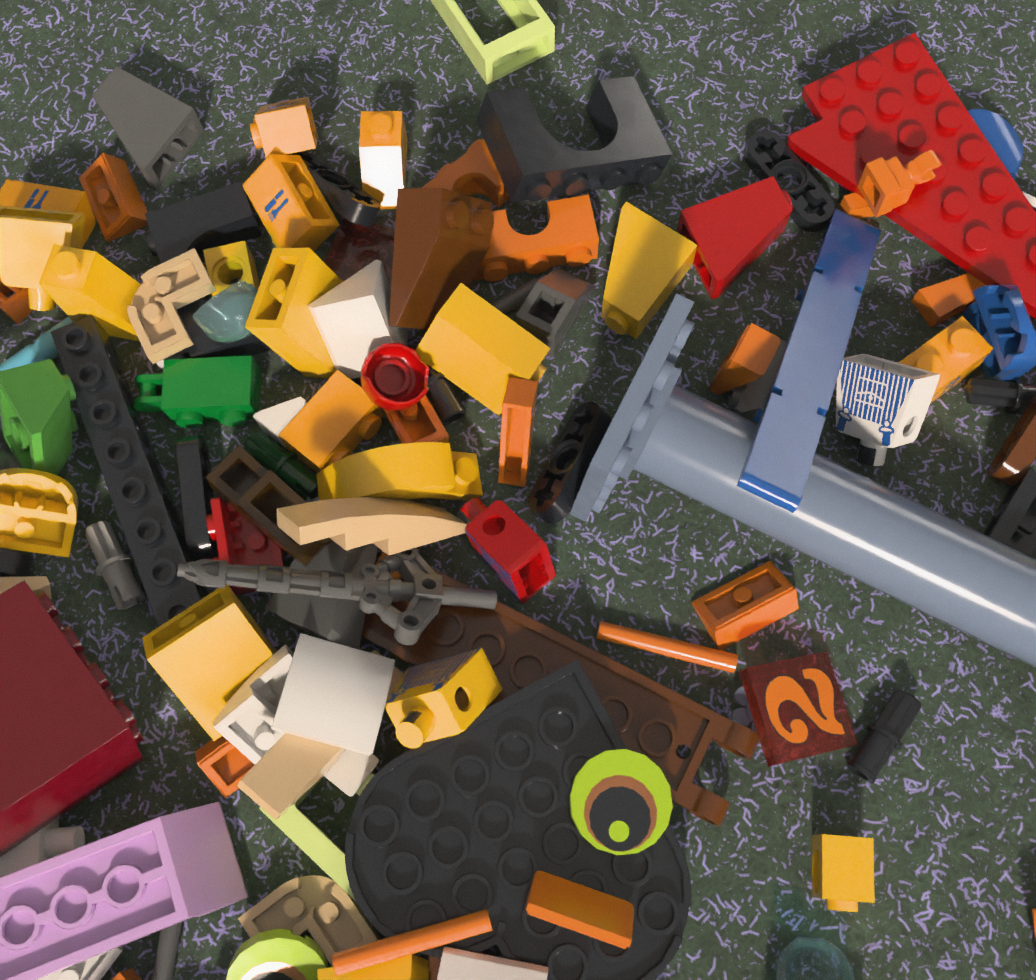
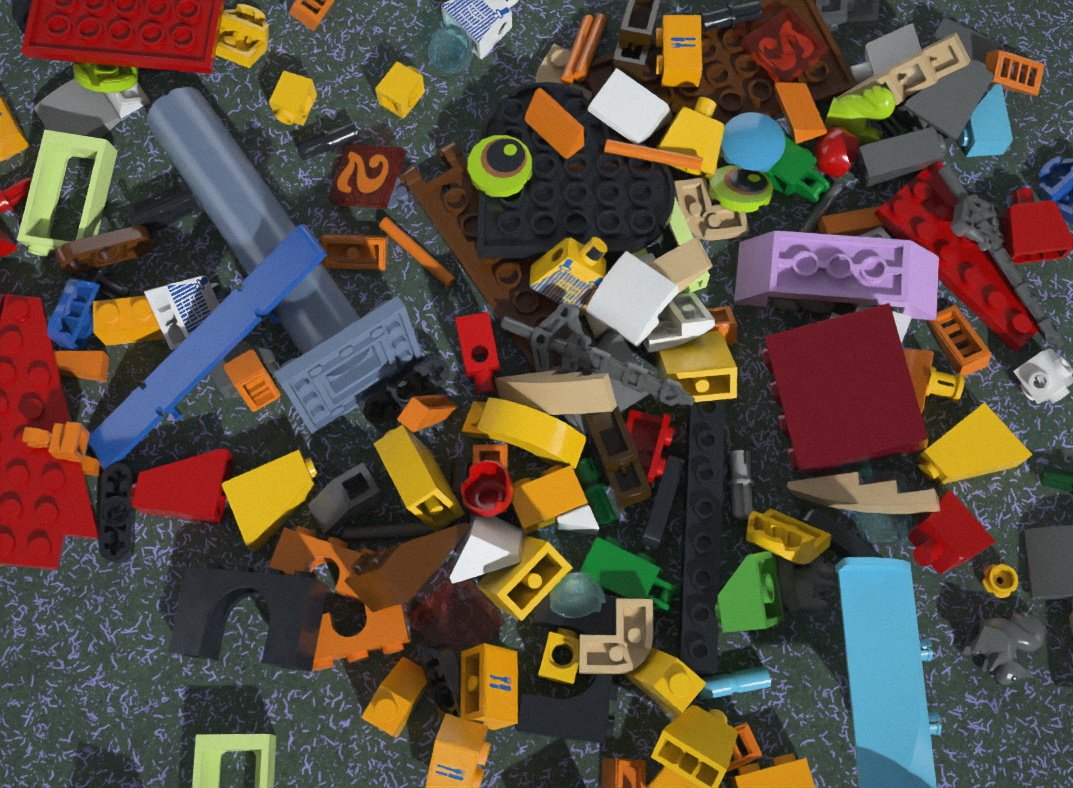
camera: 155 degrees left, 0 degrees up
(975, 766) = (292, 98): none -> yellow brick

